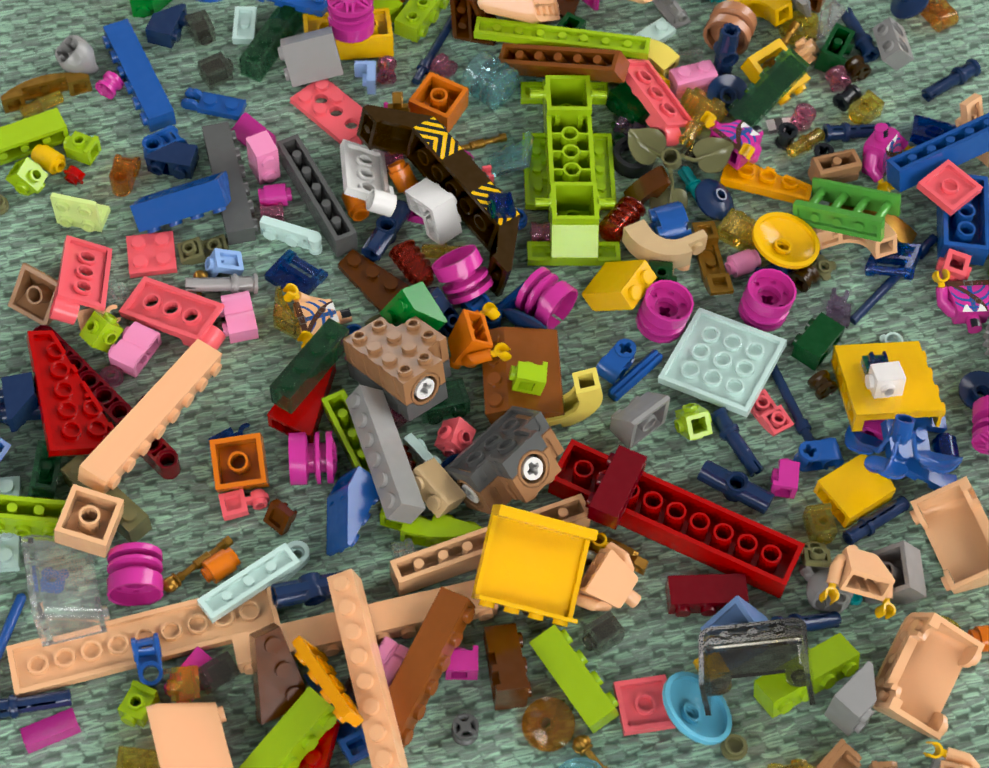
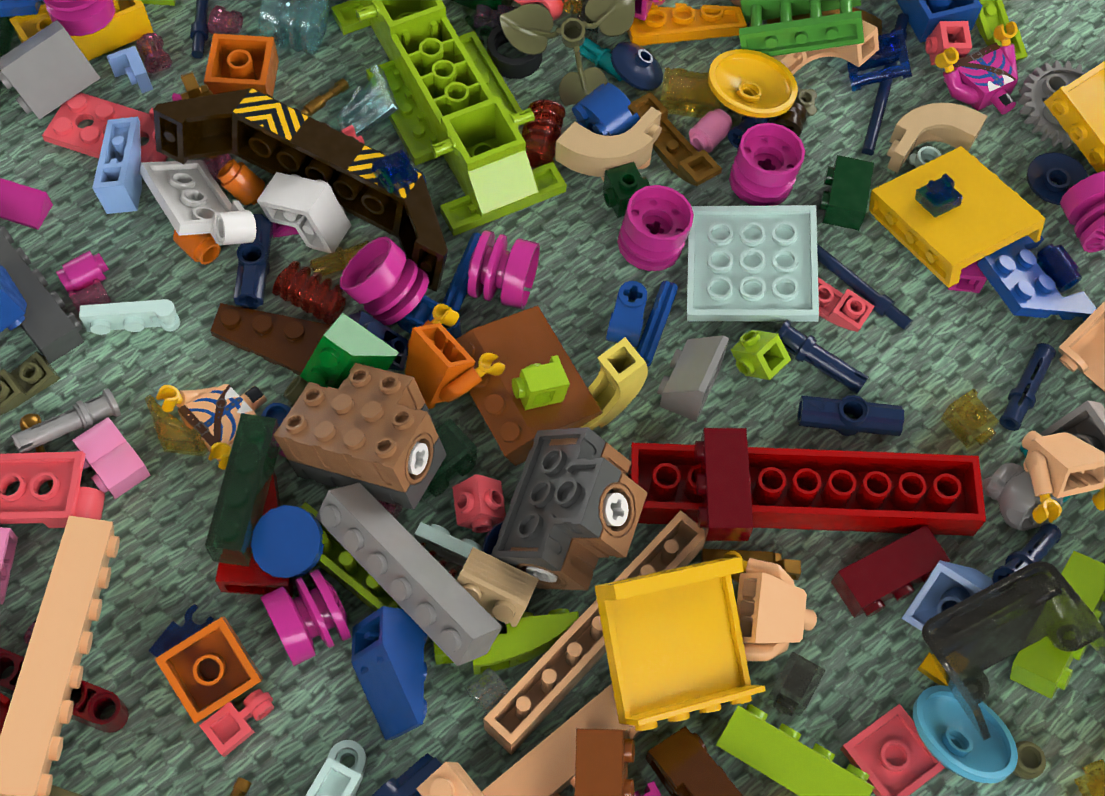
camera: 25 degrees left, 5 degrees up
(224, 262) = (54, 391): light blue bracket -> none
(263, 157) = (44, 227): bright pink brick -> none
(279, 516) = (299, 717): reddish brown tile -> none
(281, 273) = (147, 375): clear blue plate -> none
(317, 195) = (140, 250): dark grey brick -> none
(321, 407) = (287, 542): none -> blue tile
(326, 139) = (118, 168): none -> light blue slope
(521, 319) = (488, 310): dark blue dish -> none
(540, 232) = (450, 187): clear pink wheel -> none
(619, 285) = (585, 217): yellow brick -> none
(649, 185) = (554, 77): reddish brown slope -> none
(785, 478) = (901, 379): dark pink brick -> none
(816, 555) = (996, 465): olive slope -> none
(819, 455) = (921, 334): blue piece -> none
(822, 384) = (879, 243): dark brown wheel -> none
(838, 308) = (845, 143): clear purple plate -> none
(854, 491) = (986, 359): yellow brick -> none
(885, 379) = (964, 208): white brick -> none
(901, 433) = (1026, 266): blue plant -> none
(909, 318) = (934, 122): none -> tan arch

